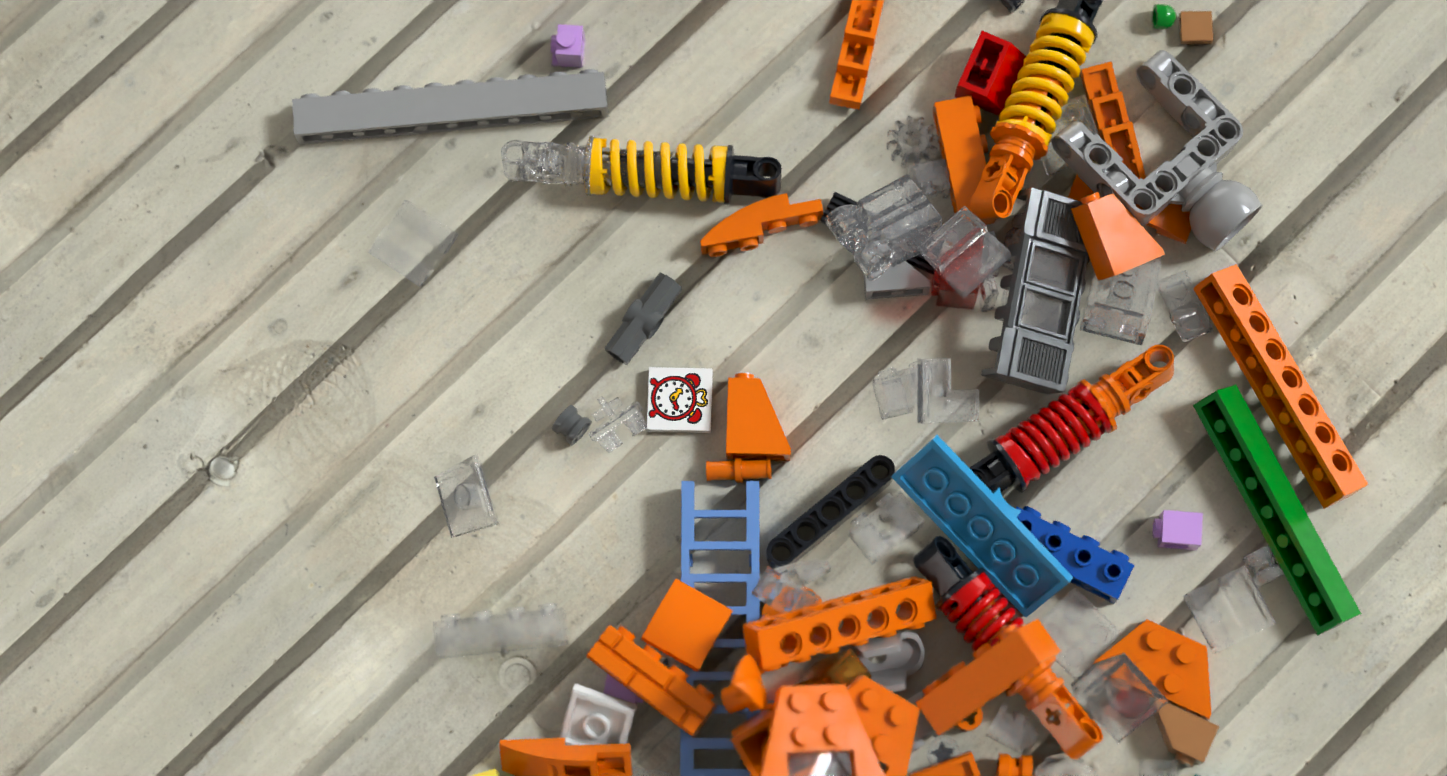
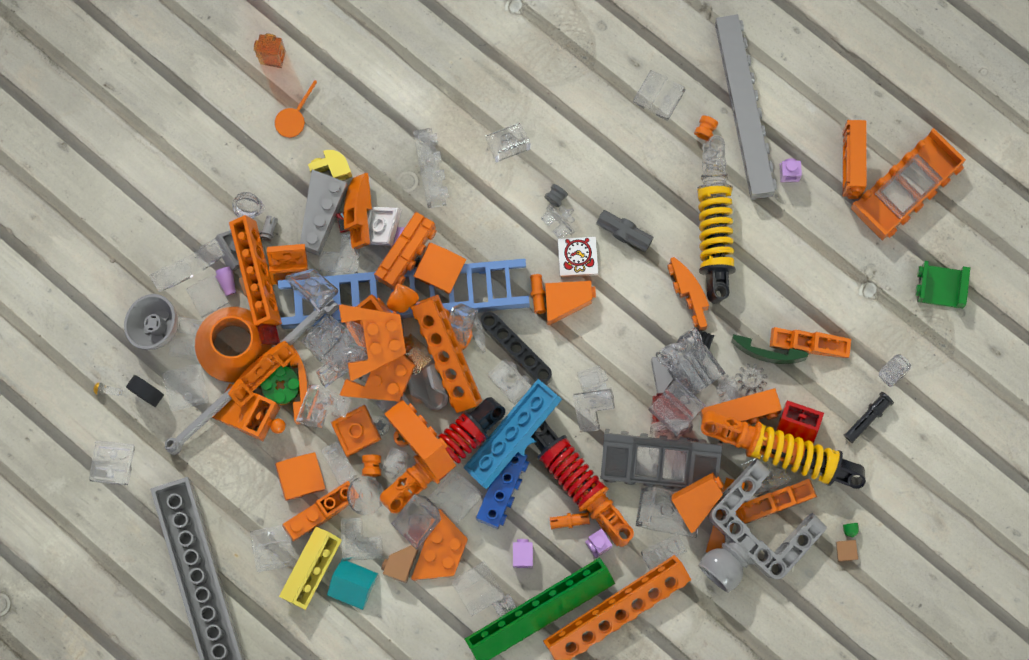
camera: 85 degrees right, 0 degrees up
(479, 171) = (706, 127): none -> orange wheel
(855, 143) = (792, 357): none -> dark green slope
(1125, 450) = (569, 520): none -> orange pin
(1167, 405) = (598, 543): none -> lavender brick

